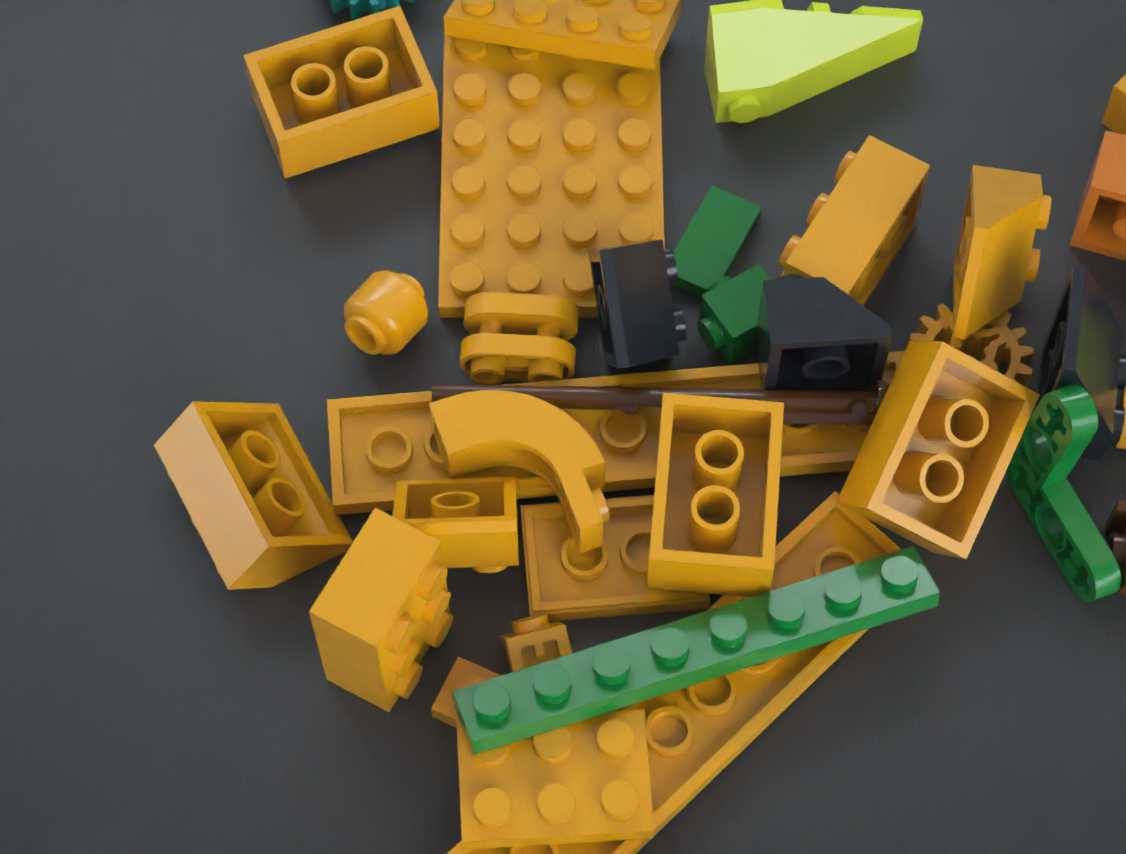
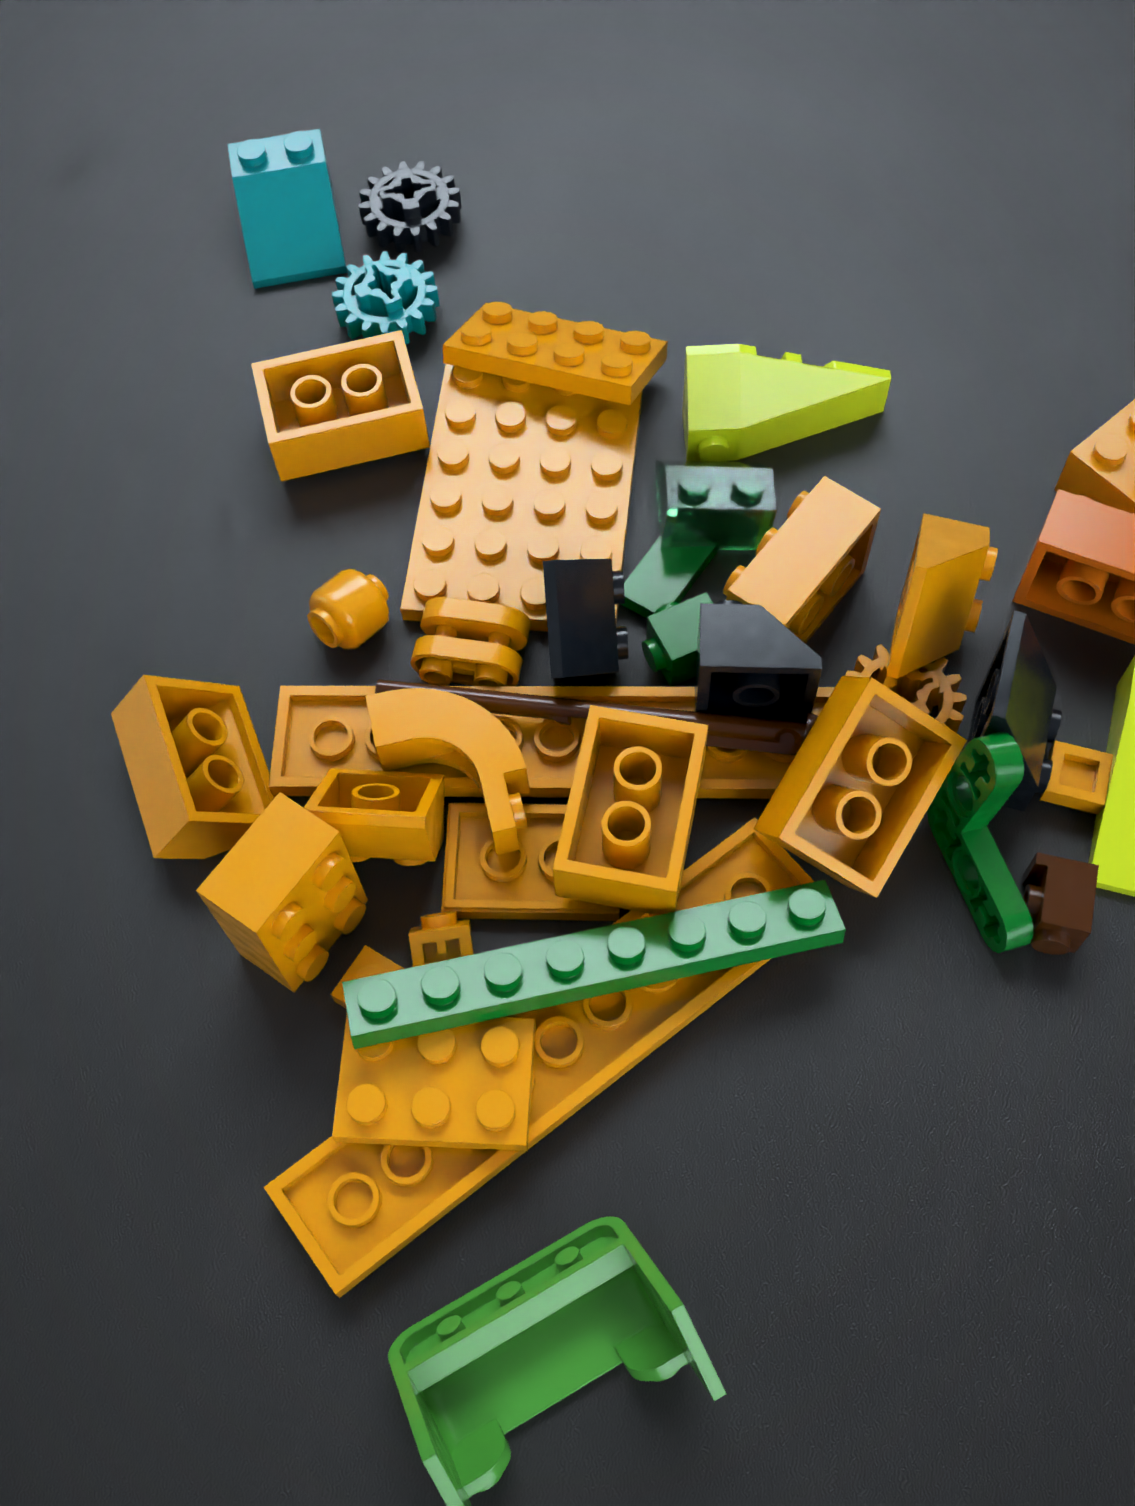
camera: 10 degrees right, 0 degrees up
(753, 166) = (714, 503): none -> clear green slope

